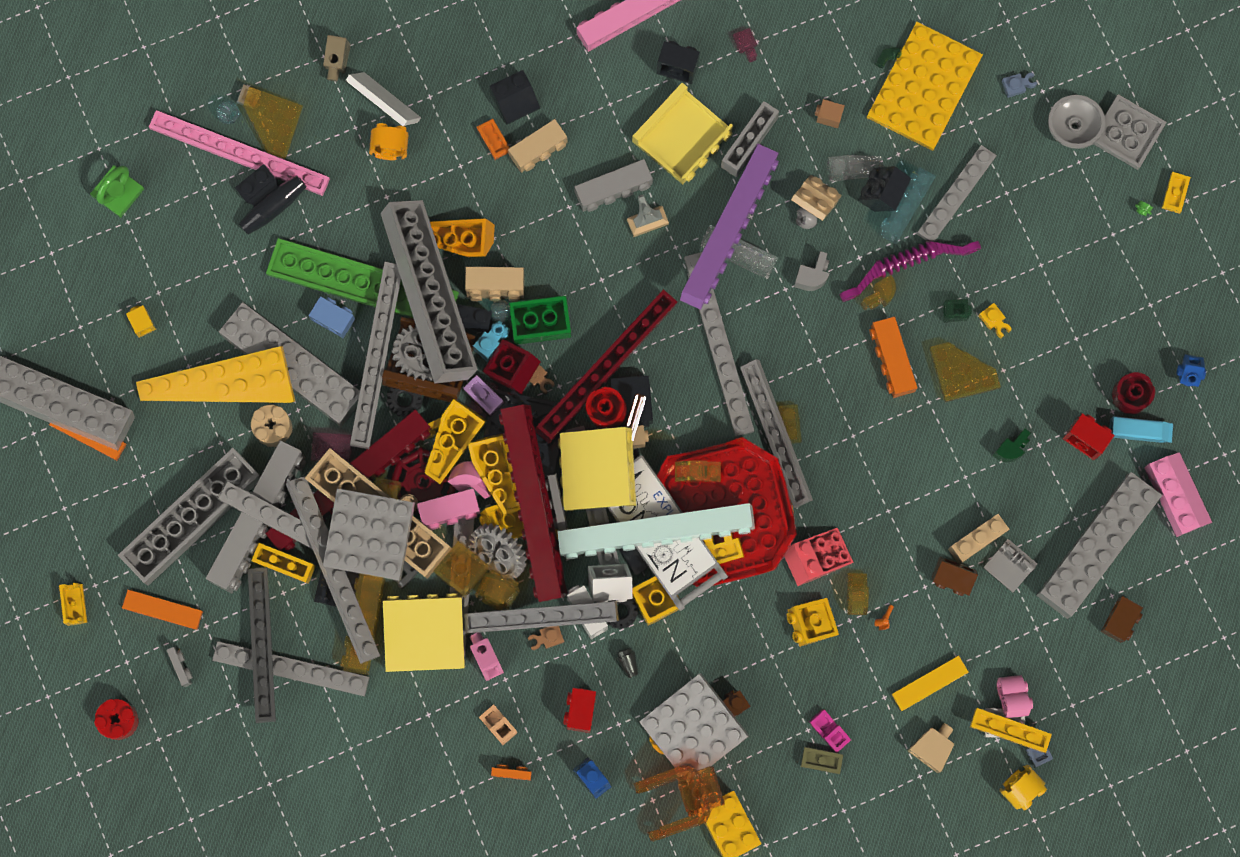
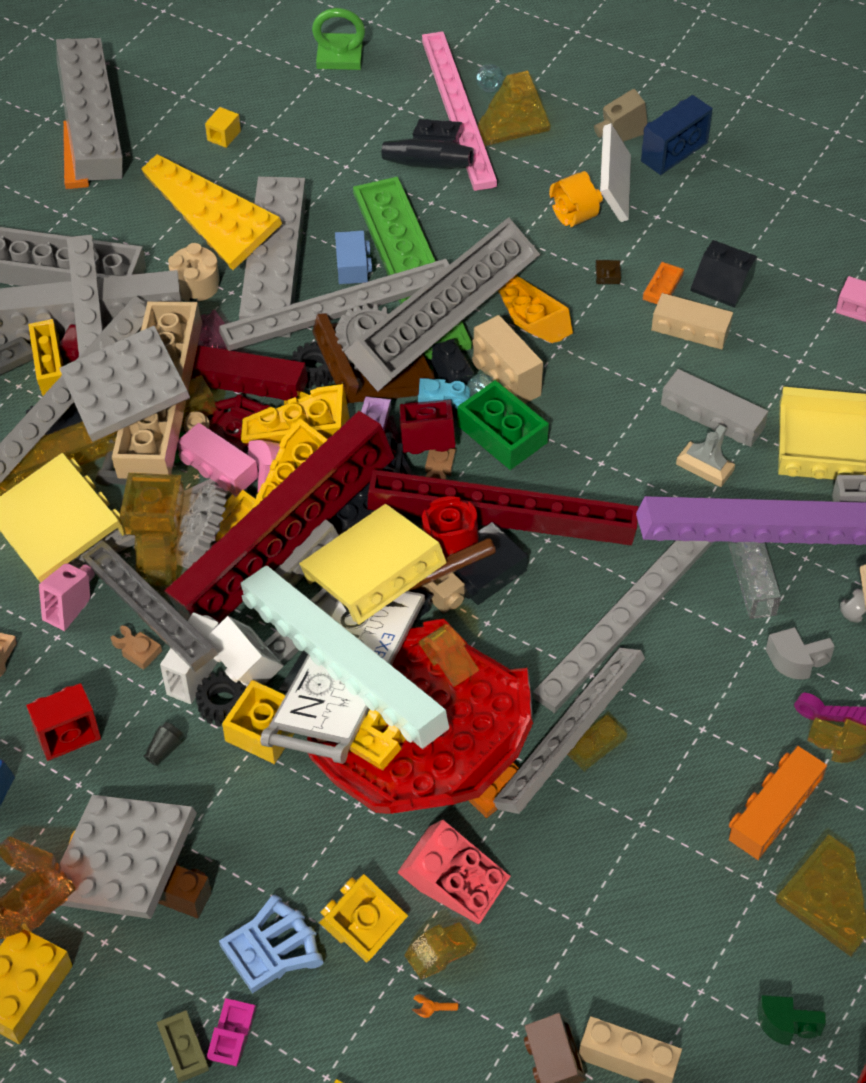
camera: 60 degrees right, 25 degrees down
(377, 35) = (676, 134): none -> dark blue brick
(456, 164) = (607, 272): none -> dark brown plate
(794, 693) = (255, 957): none -> light blue plate

